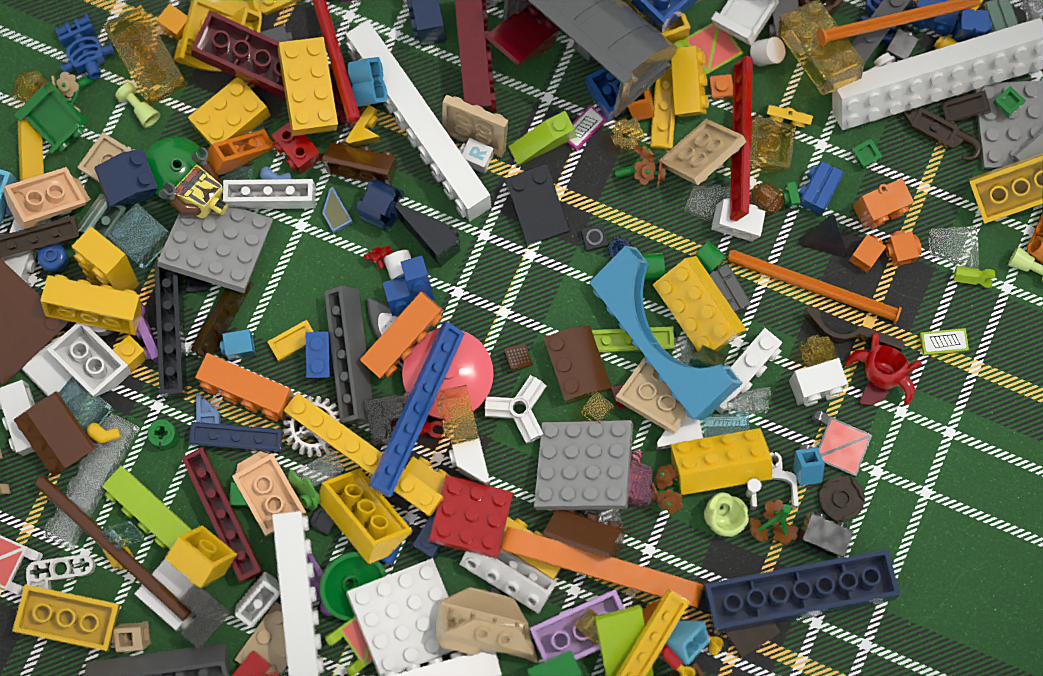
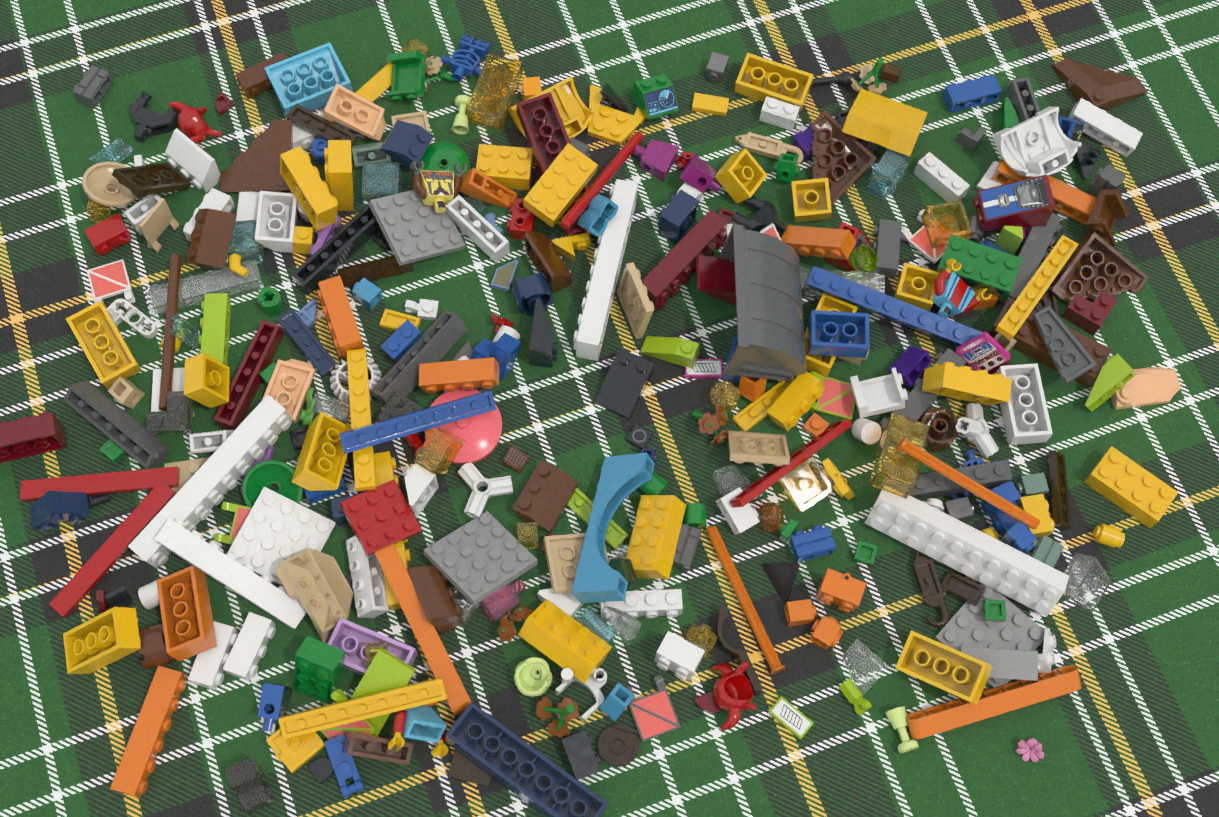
camera: 40 degrees right, 10 degrees down
(301, 307) = (426, 308): none -> white plate
(477, 155) = (620, 322): white brick -> none

